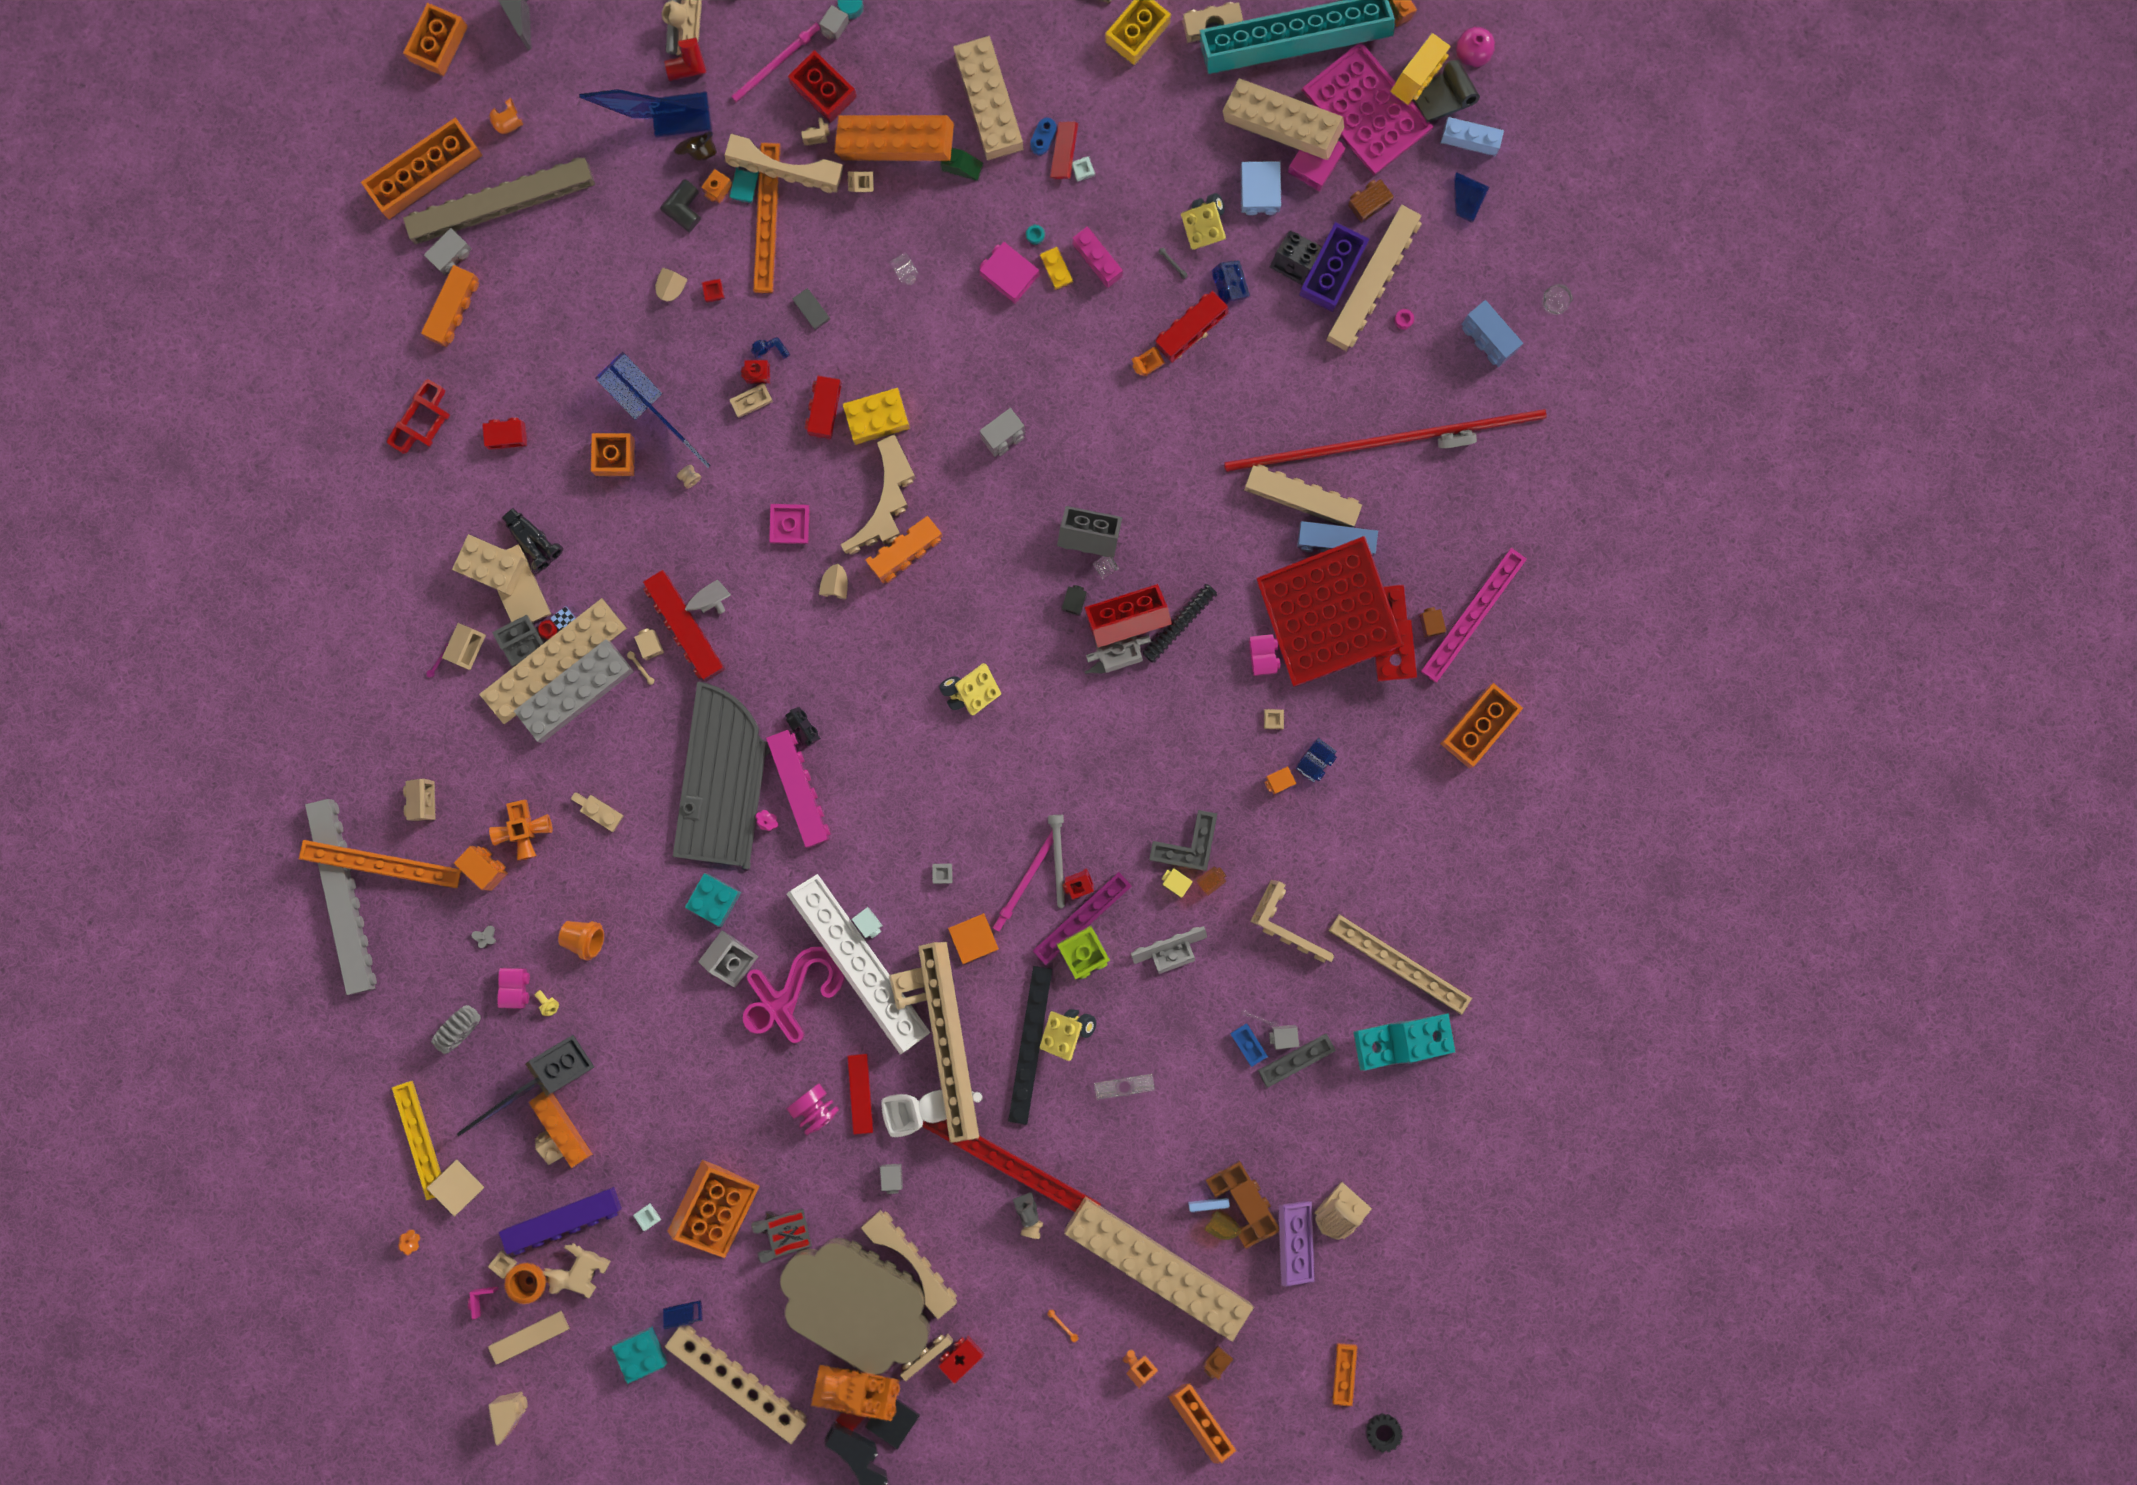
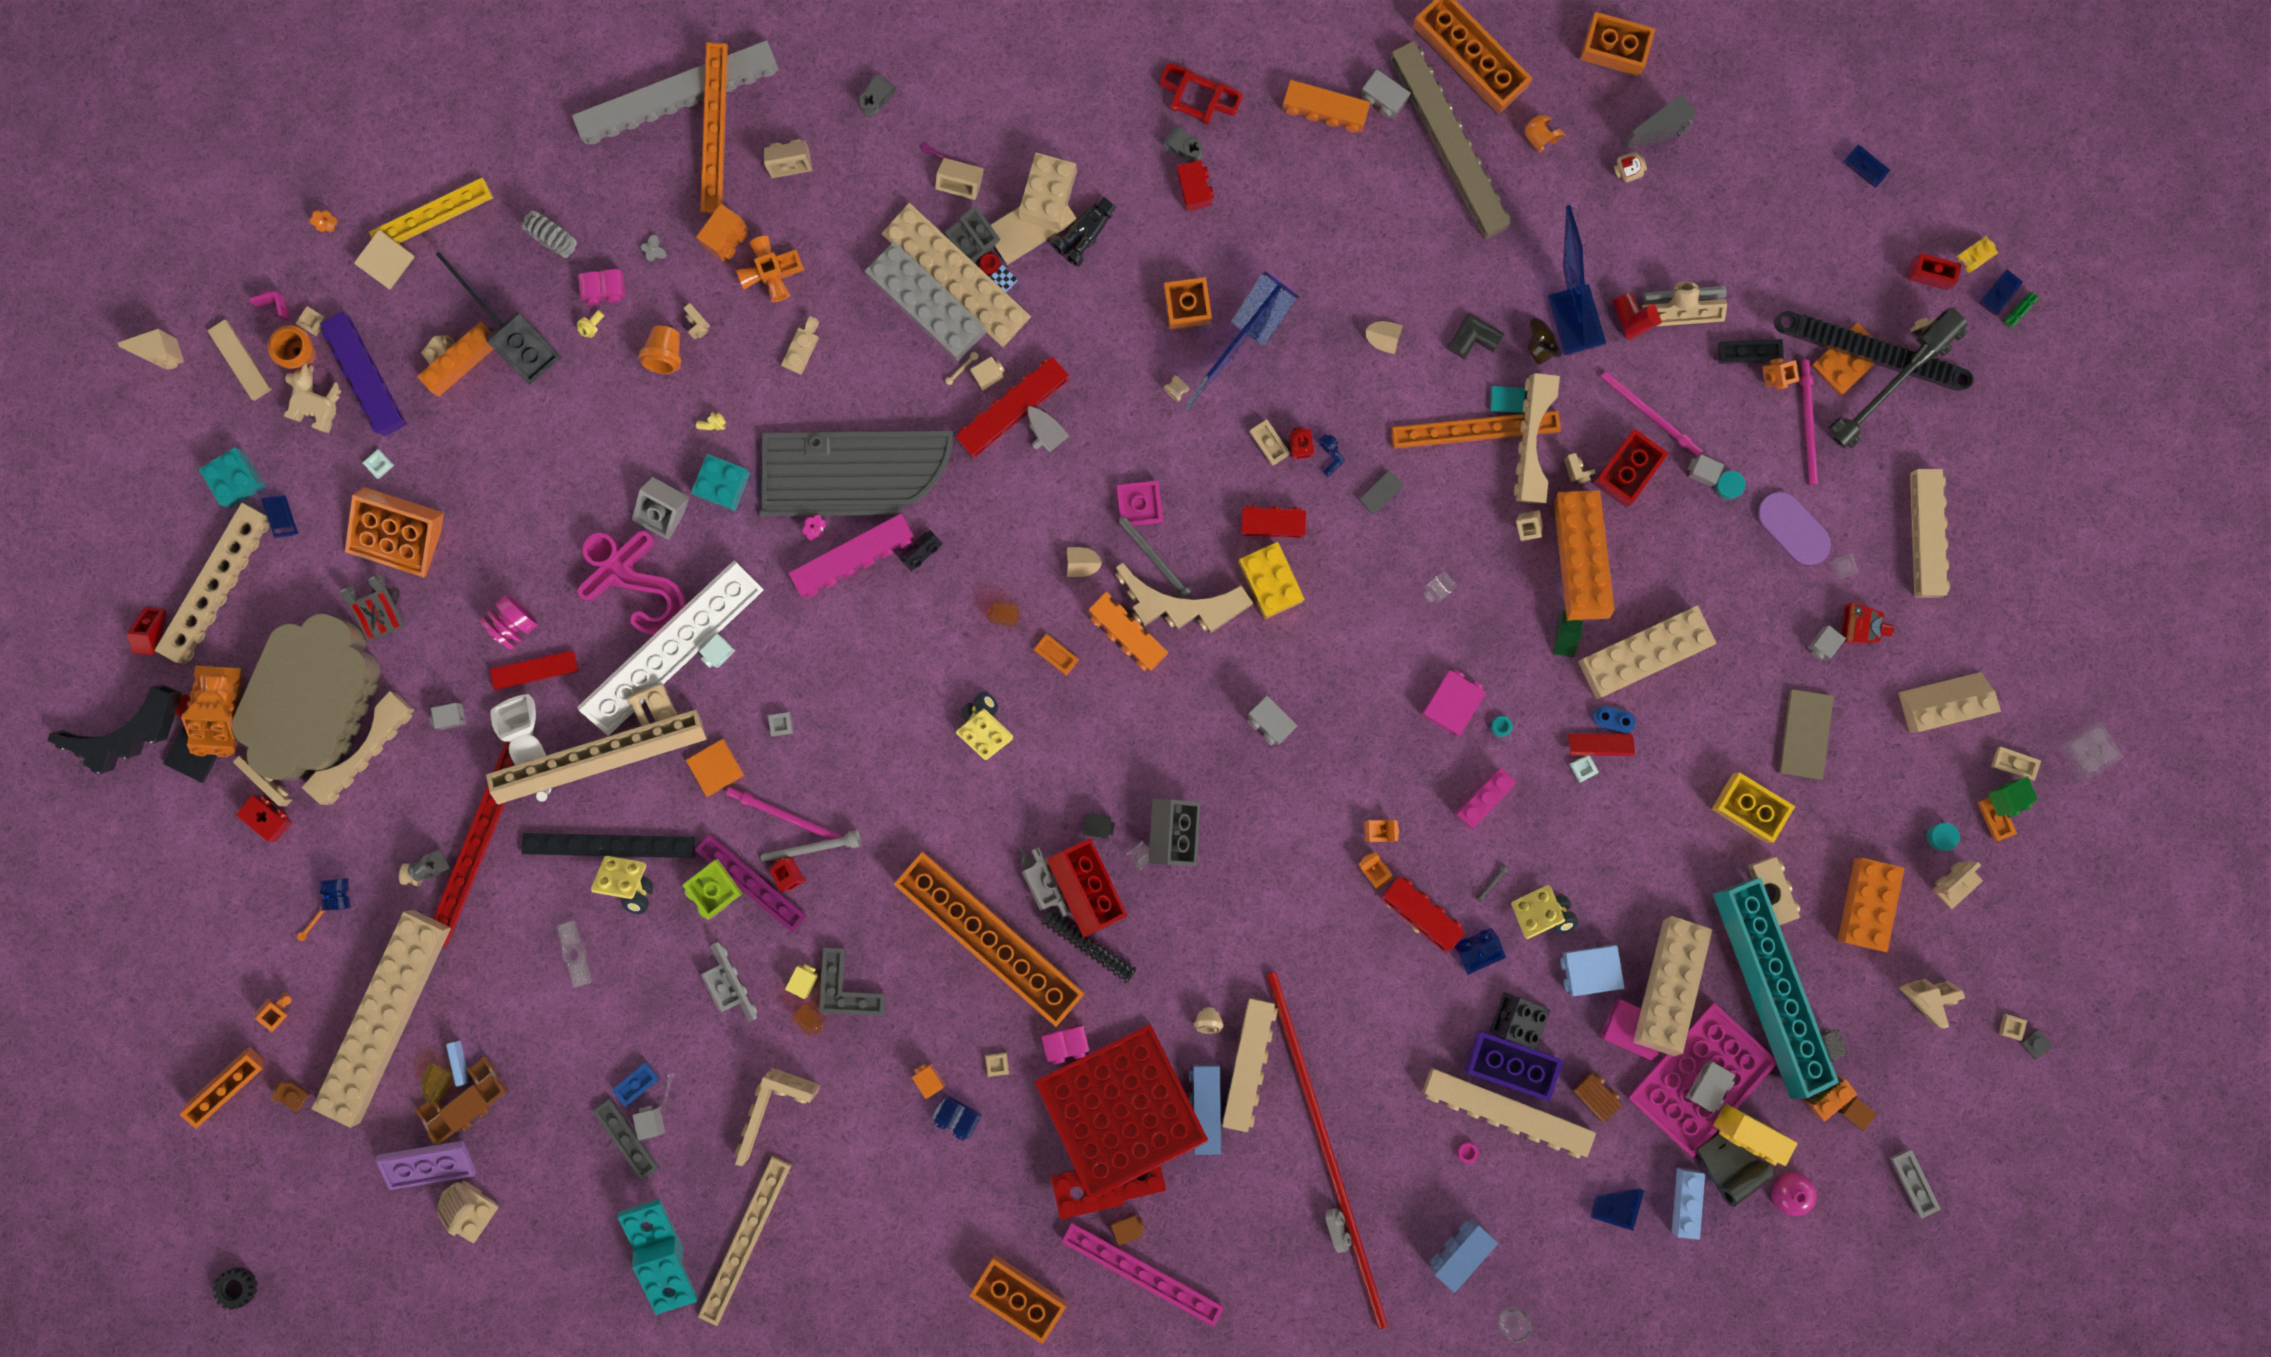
camera: 80 degrees right, 0 degrees up
(372, 710) = (879, 93): none -> dark grey piece
(463, 440) = (1181, 143): none -> dark grey piece
(549, 45) = (1630, 167): none -> head
(556, 904) = (694, 317): none -> tan bracket
(656, 897) = (715, 421): none -> light yellow plate
(713, 290) = (1385, 383): red plate -> none
(716, 186) = (1501, 370): orange brick -> none
(771, 1450) = (147, 631): none -> red slope
(840, 516) = (1155, 558): none -> dark grey bar
(871, 658) = (1004, 614): none -> clear orange brick
(915, 617) = (1056, 654): none -> orange tile
(1040, 1300) = (335, 894): none -> clear blue wheel
(1056, 268) = (1467, 754): yellow plate -> none
(1113, 351) = (1381, 830): none -> orange bracket
(1161, 709) = (989, 938): none -> orange brick
(1260, 526) = (1208, 1021): none -> tan cone
(1344, 1374) = (293, 1236): orange tile -> none
(1374, 100) = (1711, 1086): none -> light grey brick

